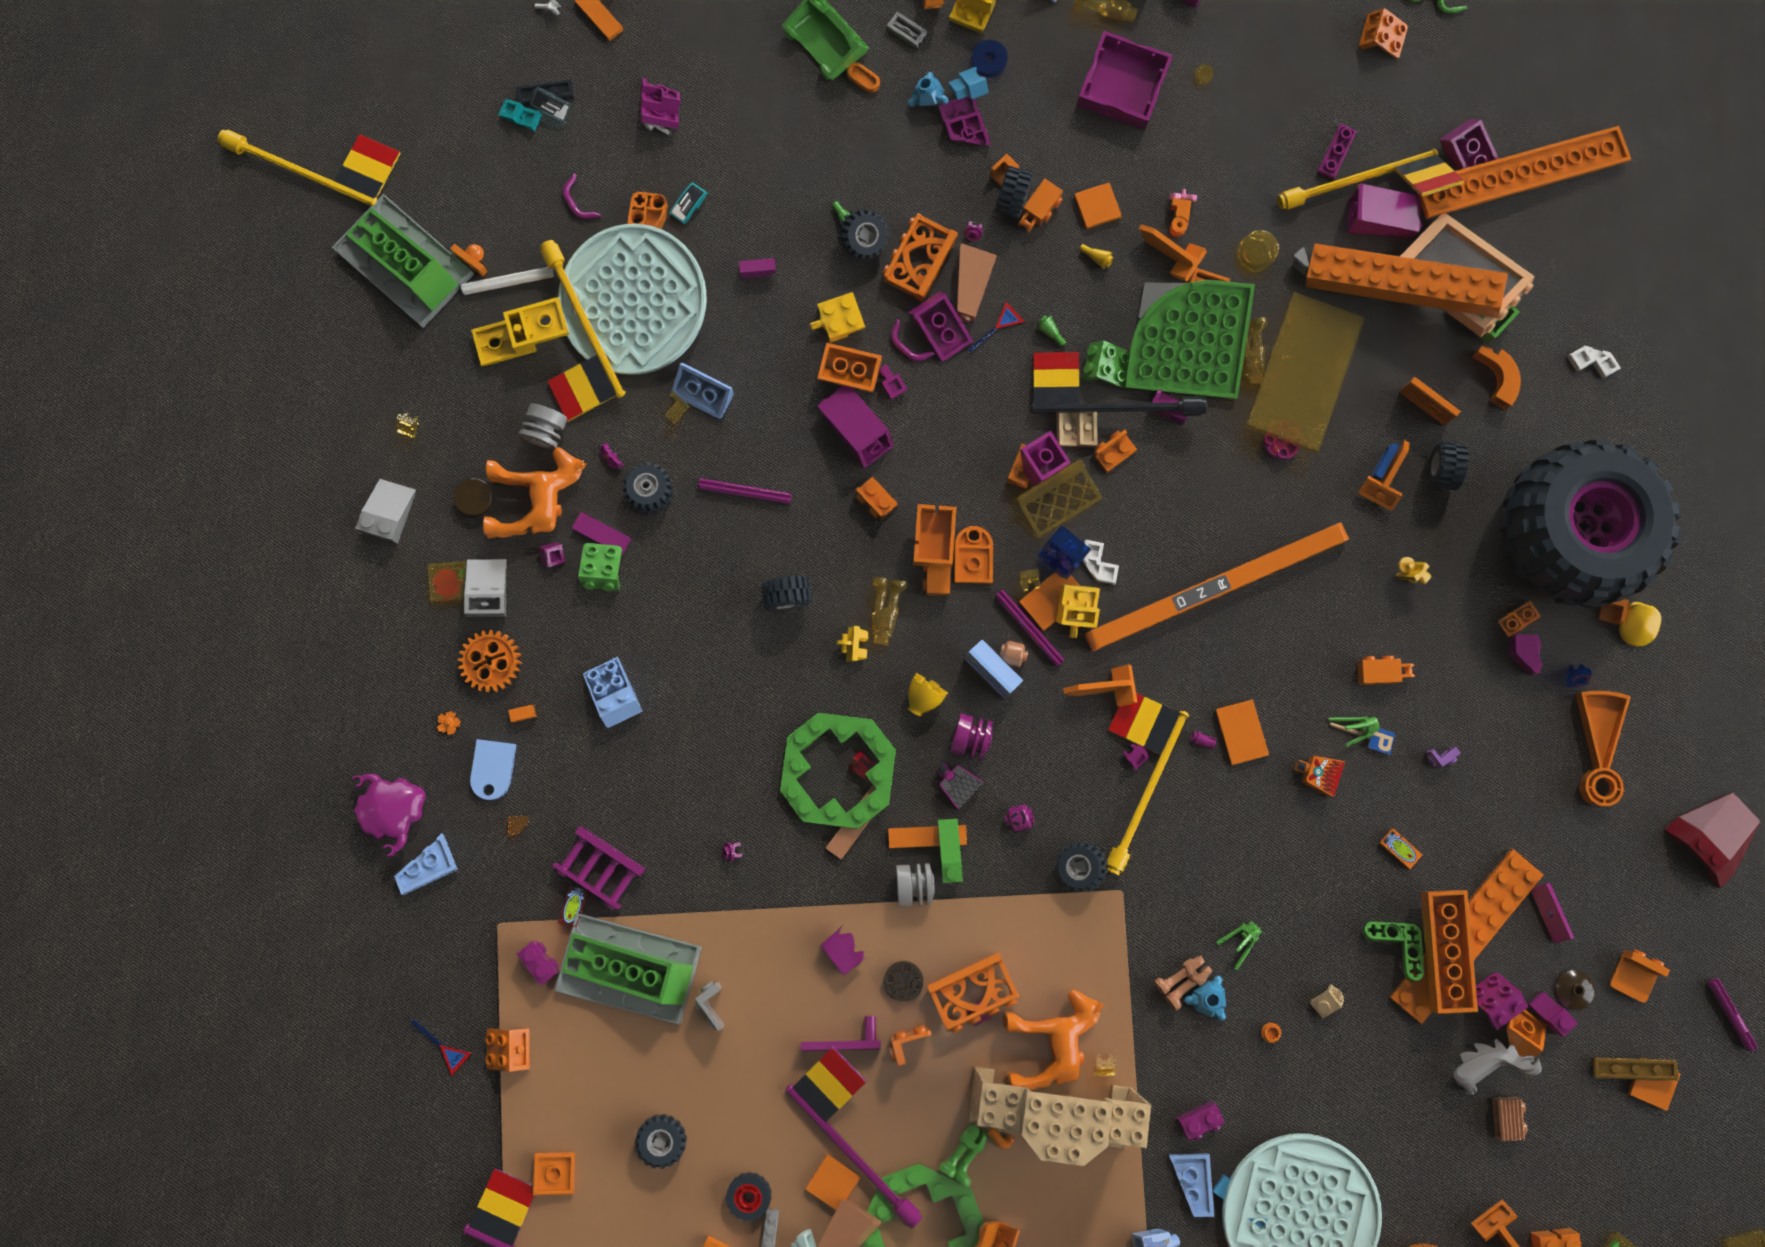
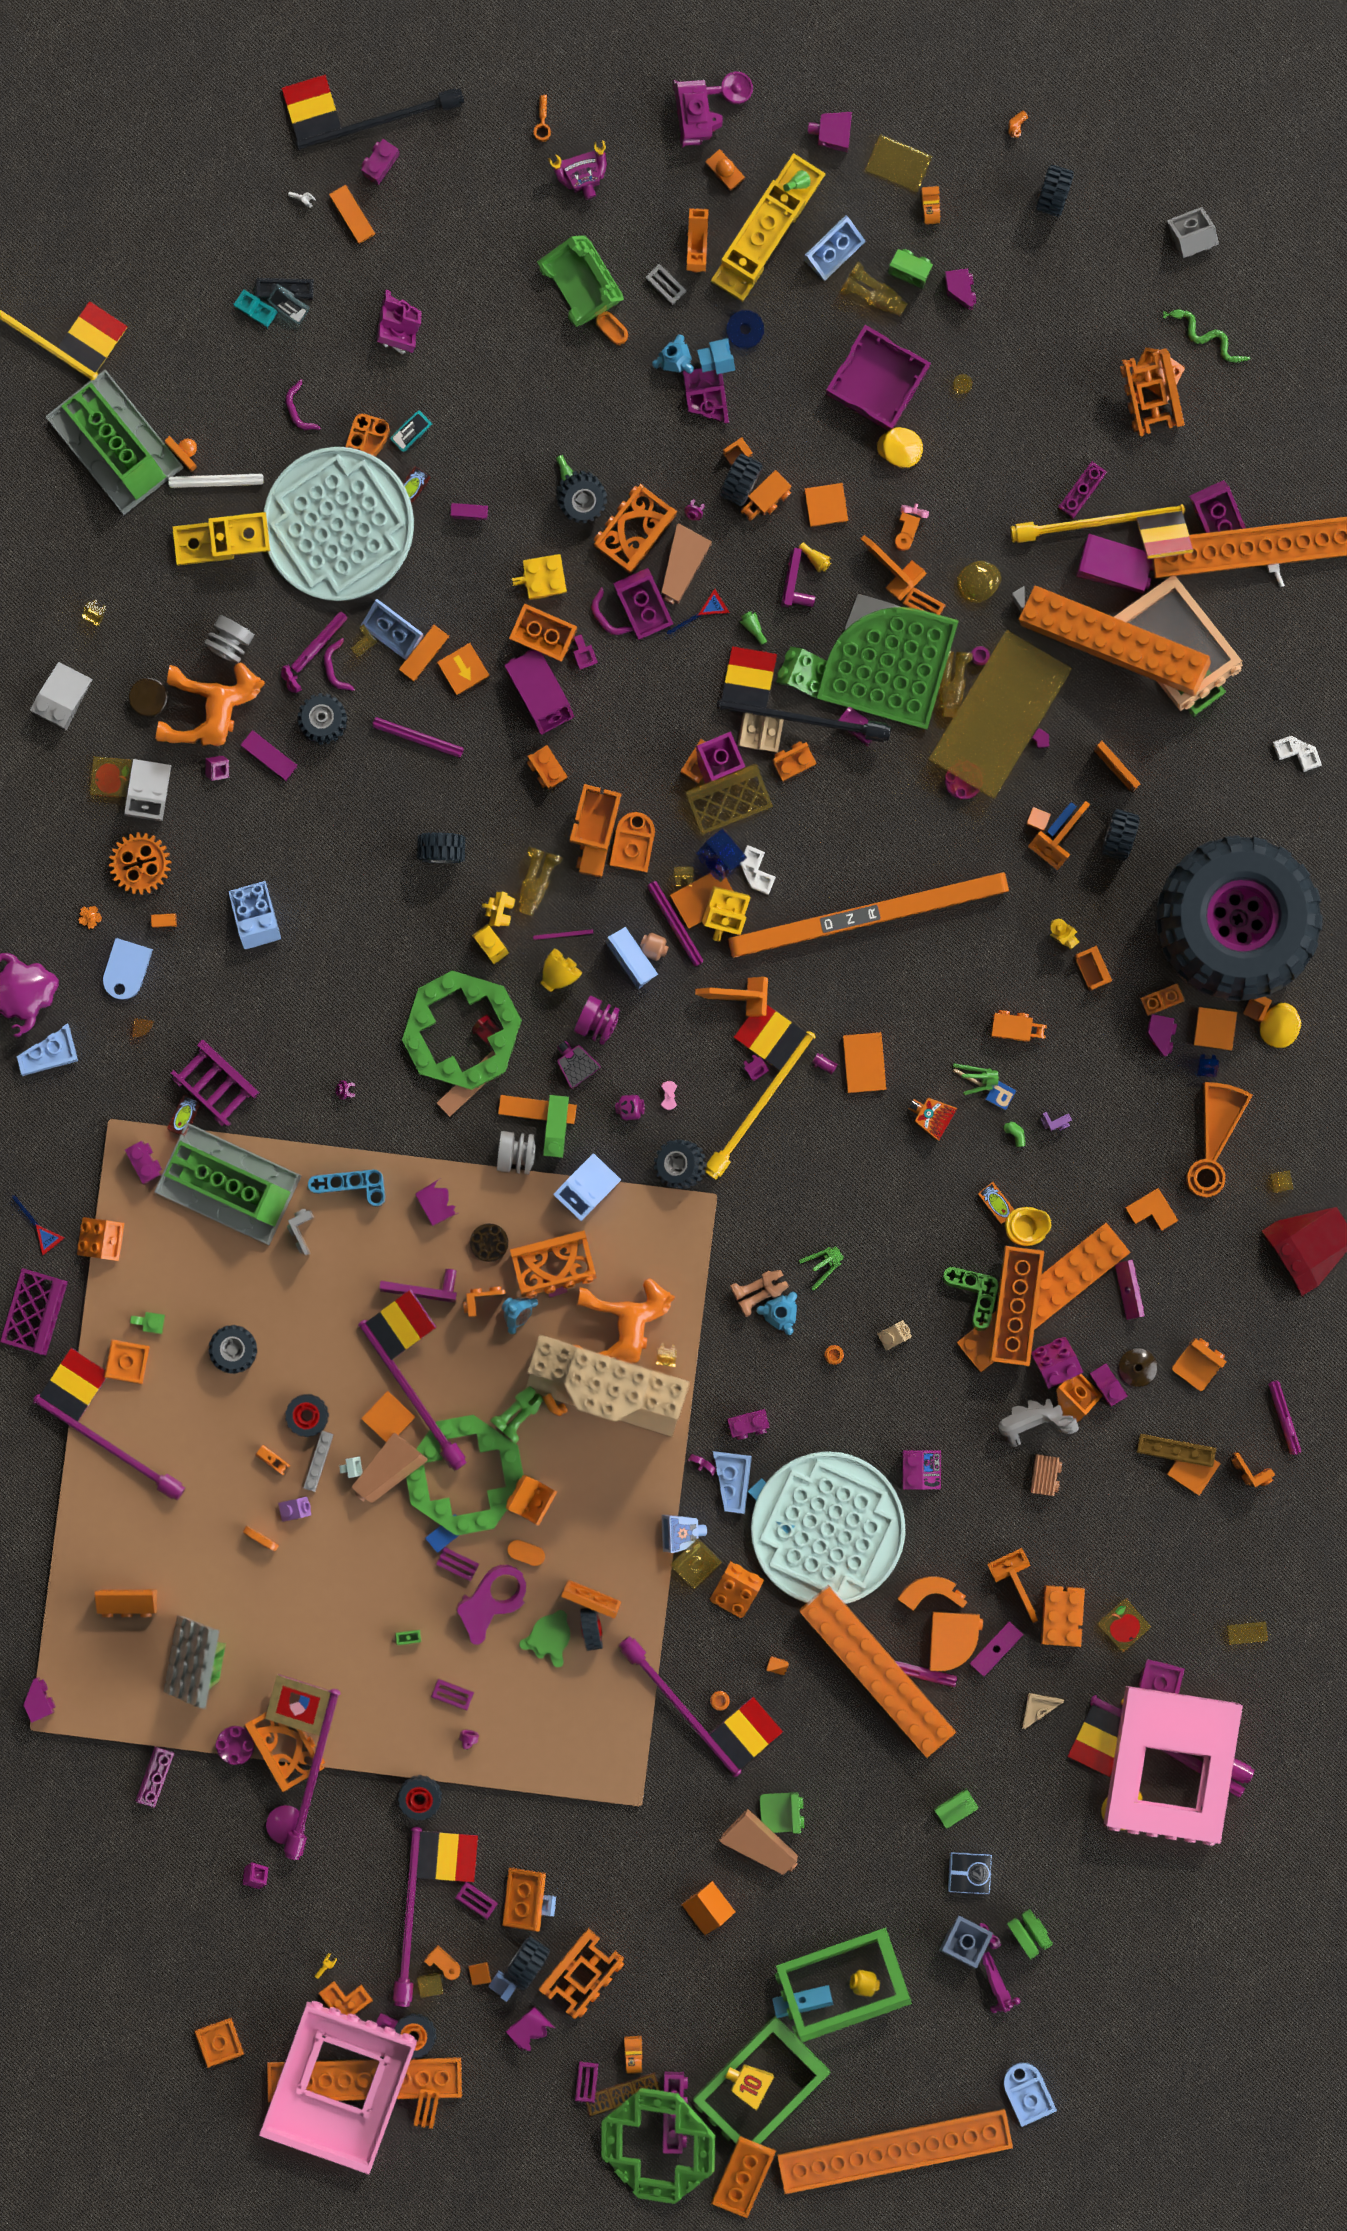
camera: 15 degrees right, 5 degrees up
(467, 1139) = (49, 1317): none -> magenta fence
(573, 1127) = (152, 1322): none -> bright green plate
(592, 380) = (284, 599): flag -> none
(600, 567) = (263, 789): bright green bracket -> none
(632, 416) = (314, 647): none -> magenta axle
(646, 438) = (329, 667): none -> magenta animal
(701, 250) = (415, 483): none -> tile
(736, 409) = (424, 653): none -> orange tile
(748, 949) = (346, 1185): none -> dark azure beam
(777, 418) = (463, 669): none -> orange tile
(851, 679) = (490, 944): none -> yellow torso
(921, 658) = (563, 934): none -> magenta piece
(945, 1048) = (517, 1312): none -> dark azure rock
(992, 907) = (587, 1187): none -> light blue slope
(1054, 792) = (669, 1088): none -> bright pink piece
(1079, 295) = (789, 595): none -> magenta piece
(1157, 140) = (900, 447): none -> yellow piece
(1160, 1169) = (703, 1463): none -> magenta piece
(1274, 321) = (980, 655): none -> magenta plate
(1348, 389) = (1041, 739): none -> magenta piece
(1361, 466) = (1038, 819): none -> orange slope
(1382, 1136) = (921, 1469): none -> magenta slope
(1402, 44) = (1166, 389): none -> orange fence
(1406, 774) = (1016, 1131): none -> bright green arm
(1438, 866) = (1027, 1226): none -> yellow piece
(1446, 600) = (1093, 968): none -> orange panel
(1506, 374) = (1204, 752): orange arch -> none
(1535, 194) = (1275, 568): none -> white hand
(1556, 823) = (1154, 1205): none -> orange tile
(1576, 638) = (1215, 1028): none -> orange tile
(1674, 777) = (1281, 1181): none -> clear yellow tile
(1726, 1082) = (1262, 1478): none -> orange bracket

